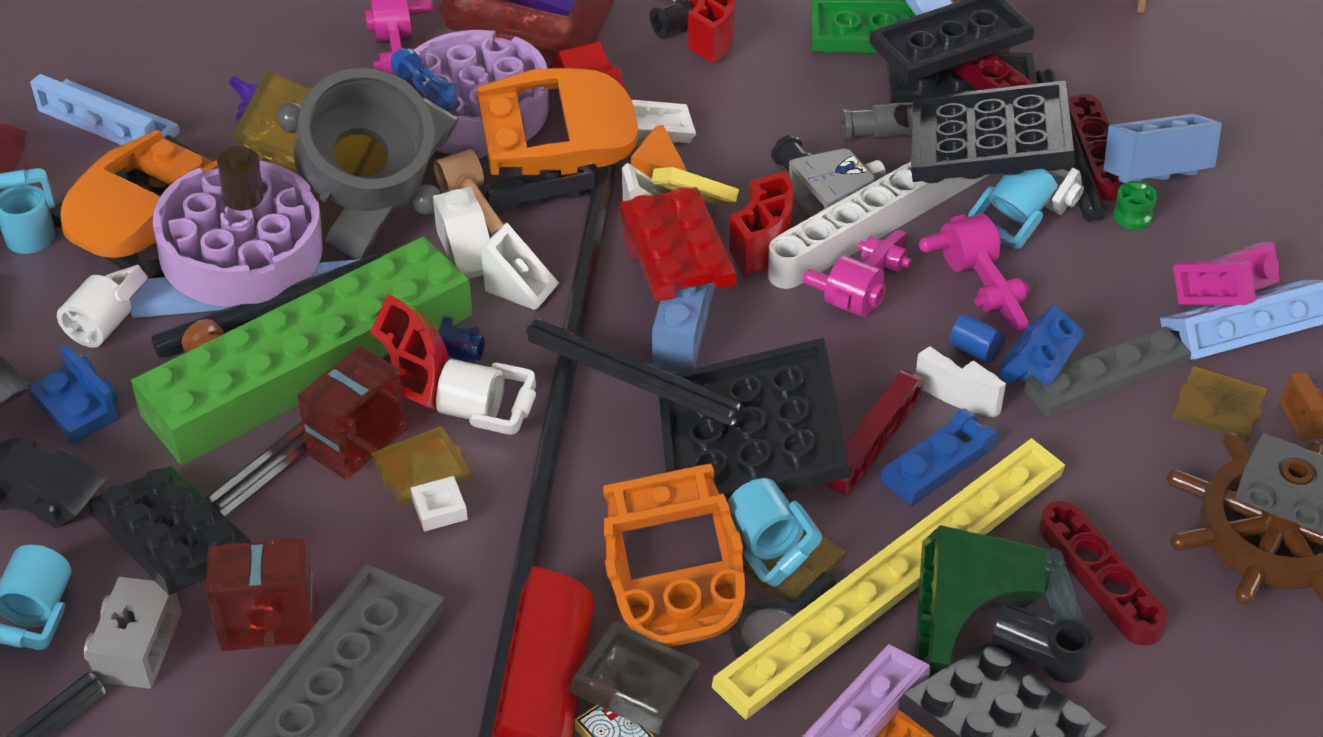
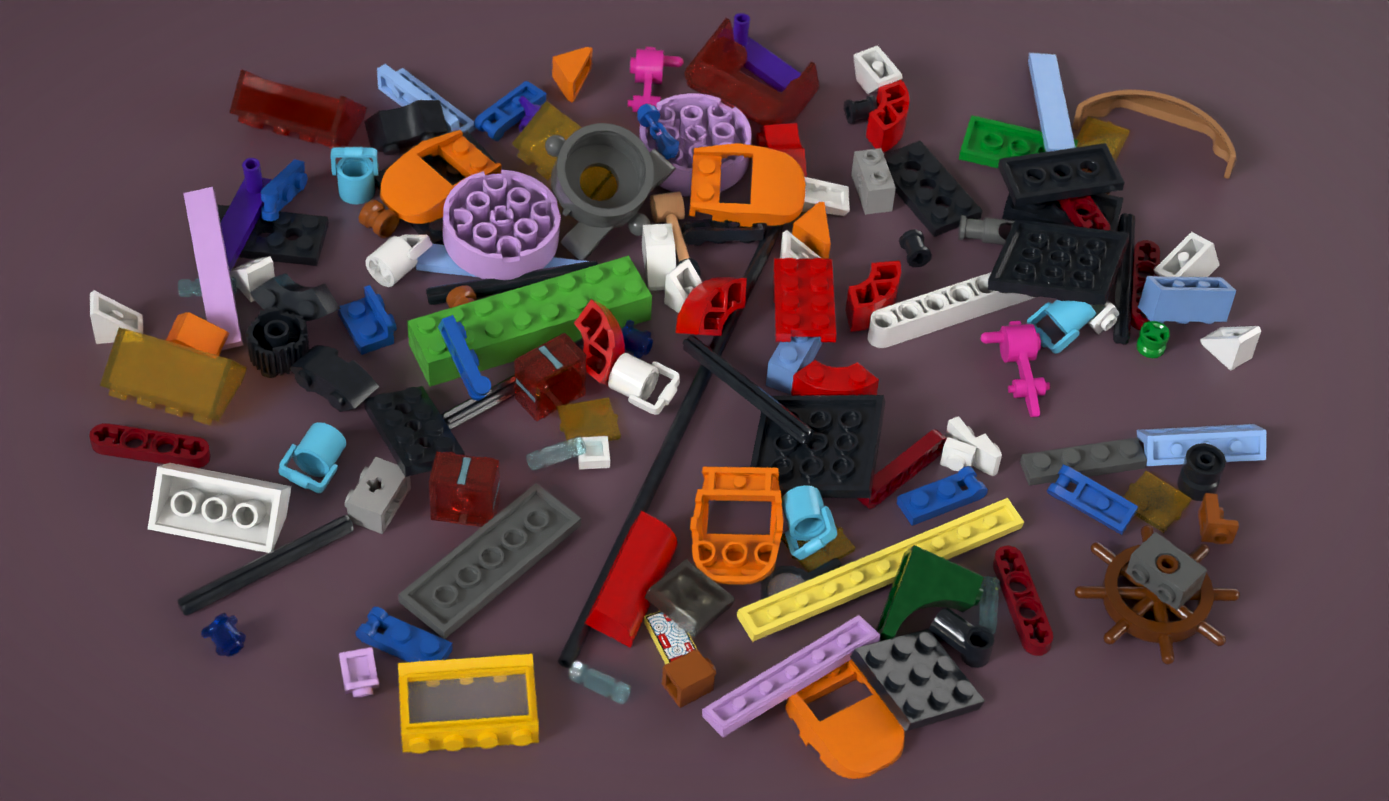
camera: 10 degrees right, 5 degrees up
(61, 259) = (377, 217): none -> dark orange wheel
(76, 143) = (405, 126): none -> black brick
(215, 103) = (508, 110): none -> blue plate
(222, 411) = (464, 359): none -> blue plate
(240, 178) = (509, 189): dark brown brick -> none
(291, 41) = (571, 71): none -> orange slope
(386, 515) = (556, 453): none -> clear light blue axle
(551, 277) = (710, 306): none -> red brick
(710, 190) = (837, 258): light yellow tile -> none
(716, 92) = (873, 181): none -> light grey brick
(738, 337) = (828, 380): none -> red brick
(783, 90) = (923, 200): none -> black plate
(830, 177) = (935, 270): light grey torso -> none
(857, 284) = (927, 358): dark pink piece -> none
(943, 397) = (957, 454): none -> white plate
(976, 338) = (998, 416): blue brick -> none
(1041, 348) = (1039, 435): blue bracket -> none
(1143, 416) = (1093, 499): none -> blue plate
(1145, 98) = (1190, 259): none -> white slope
(1228, 278) = (1196, 411): dark pink bracket -> none
(1236, 191) = (1232, 344): none -> white slope
(1270, 349) = (1201, 471): none -> black wheel

